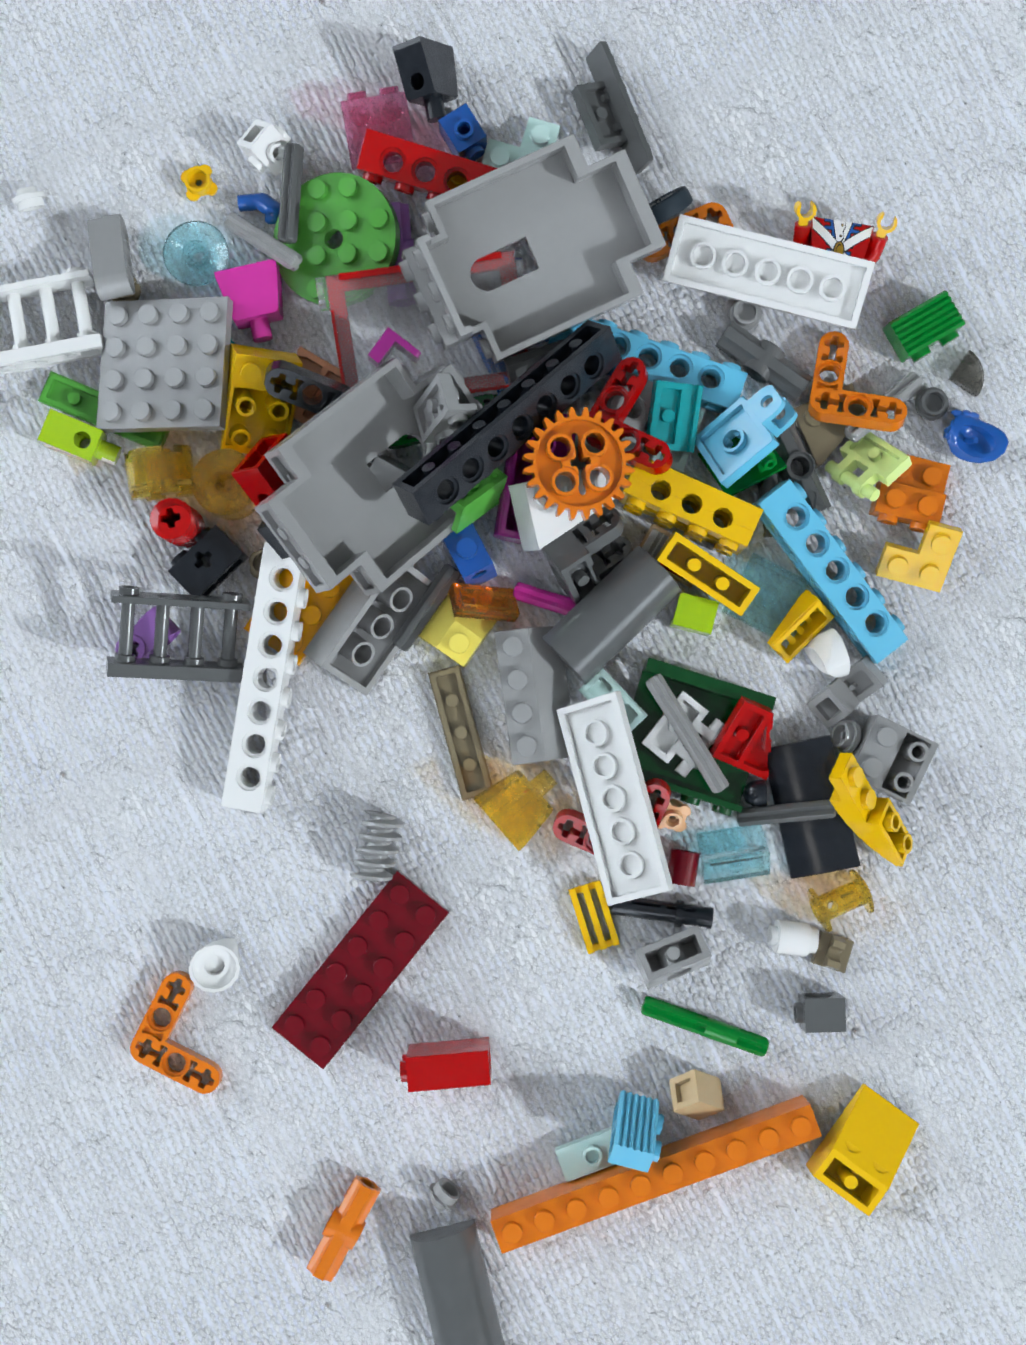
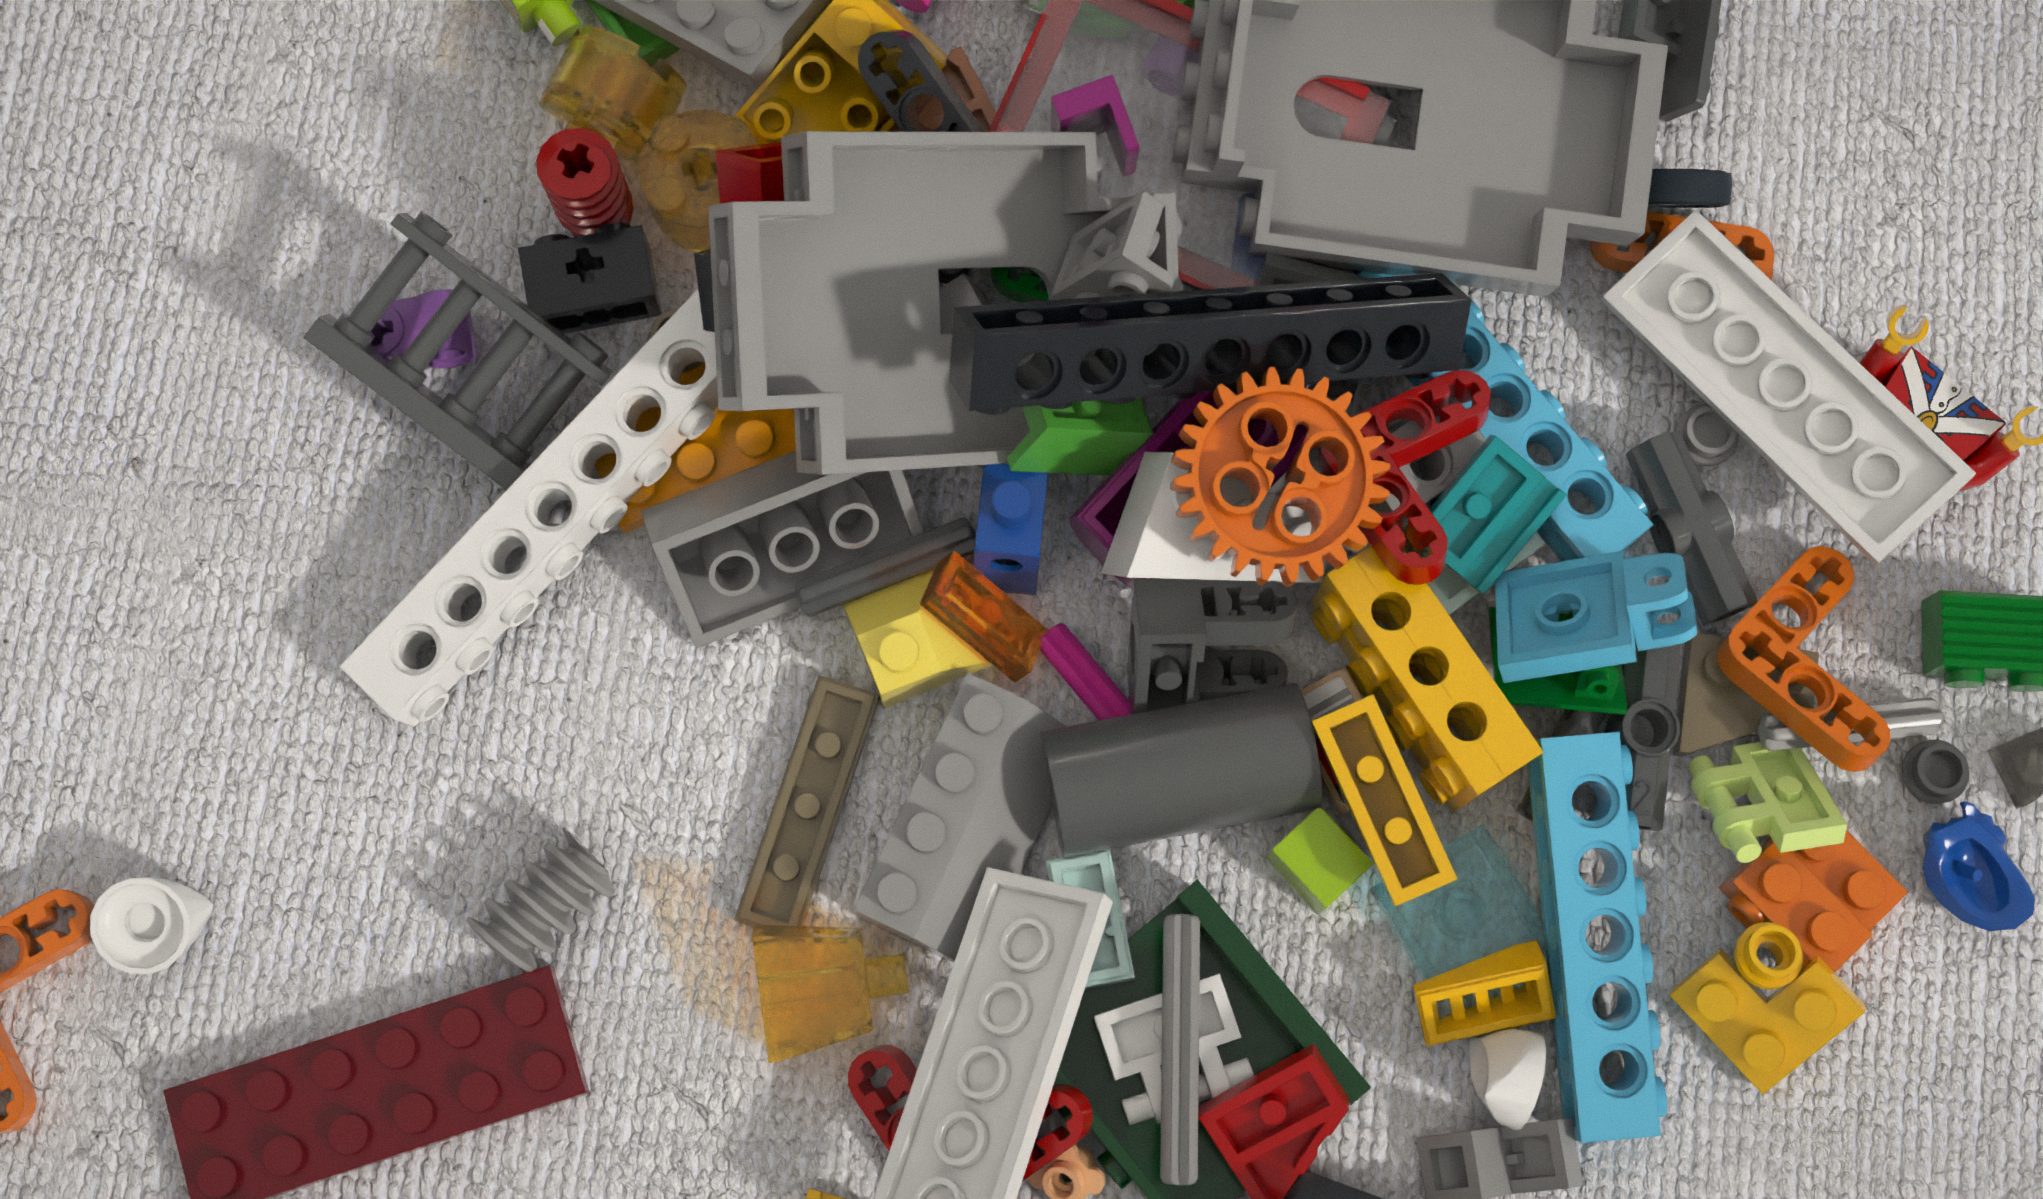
camera: 30 degrees right, 10 degrees down
(915, 527) = (1783, 946): none -> yellow plate

